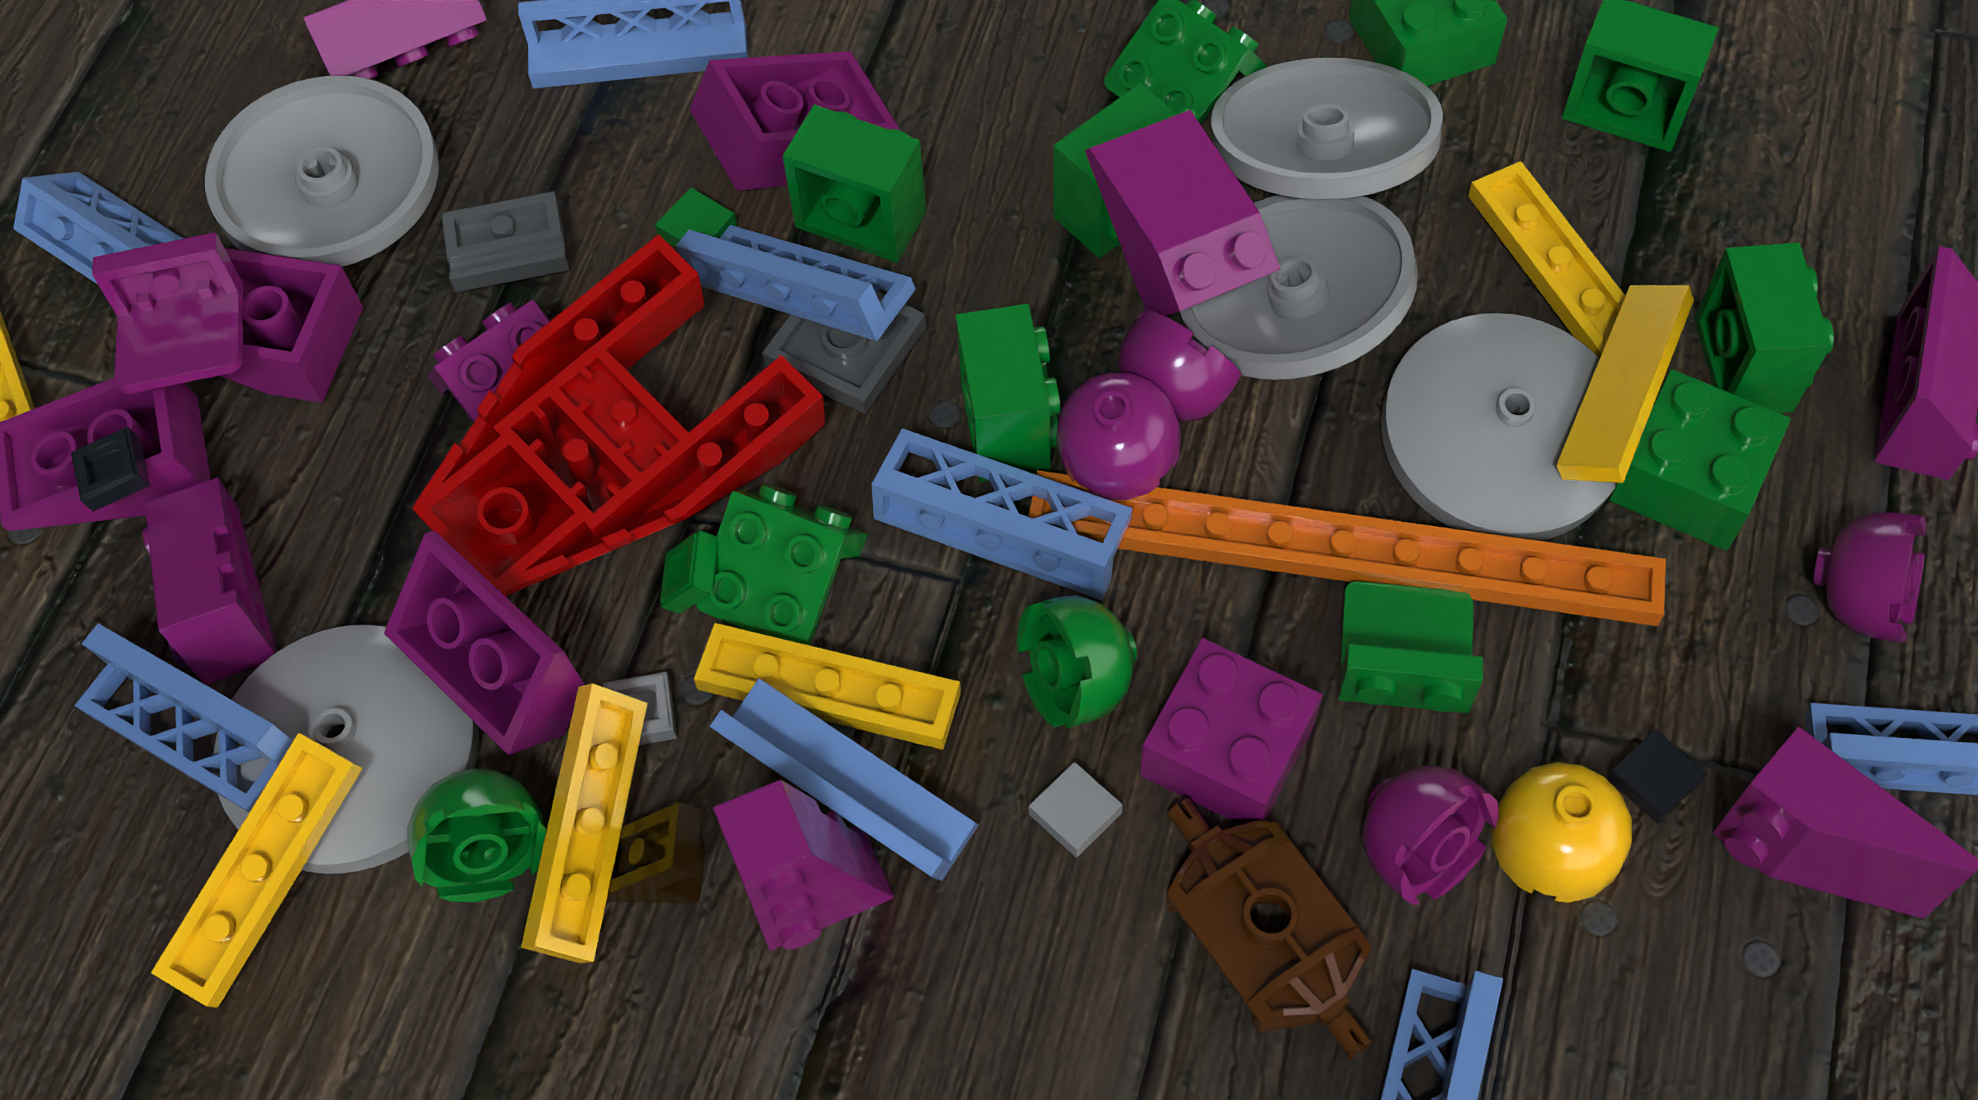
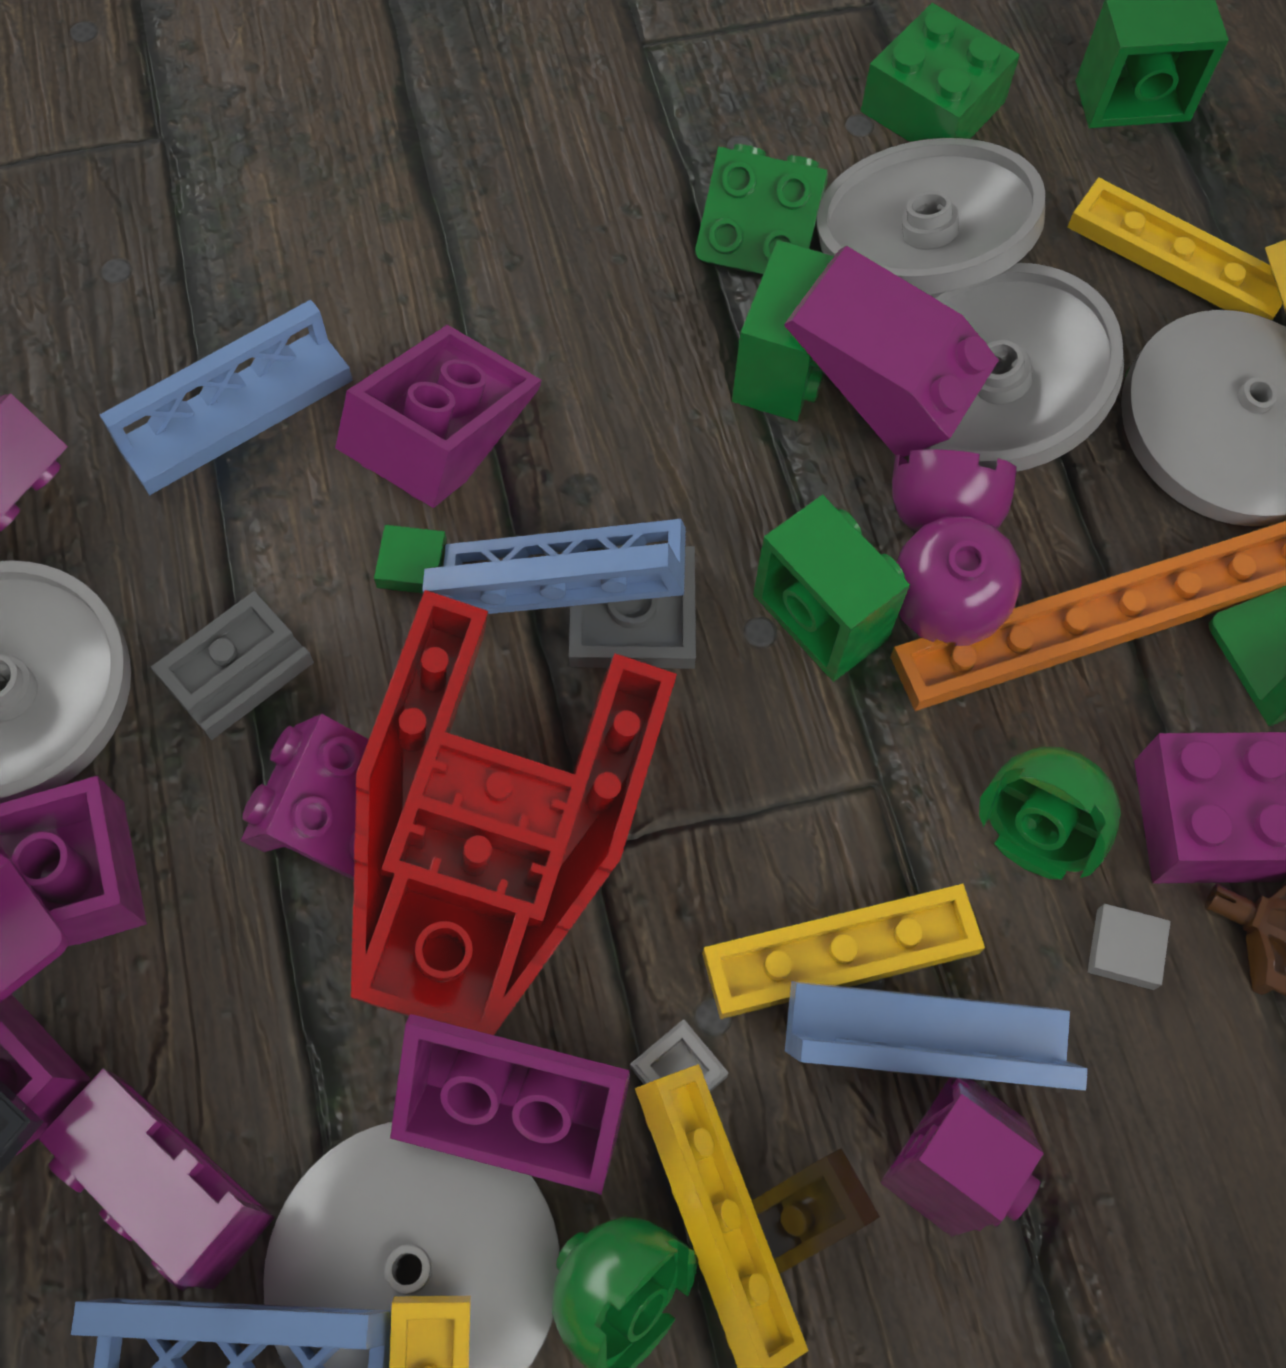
camera: 35 degrees left, 5 degrees up
(689, 572) = (643, 908): green tile -> none
(777, 563) = (720, 858): green bracket -> none
(855, 182) = (557, 448): green brick -> none
(997, 532) = (896, 723): medium blue fence -> none

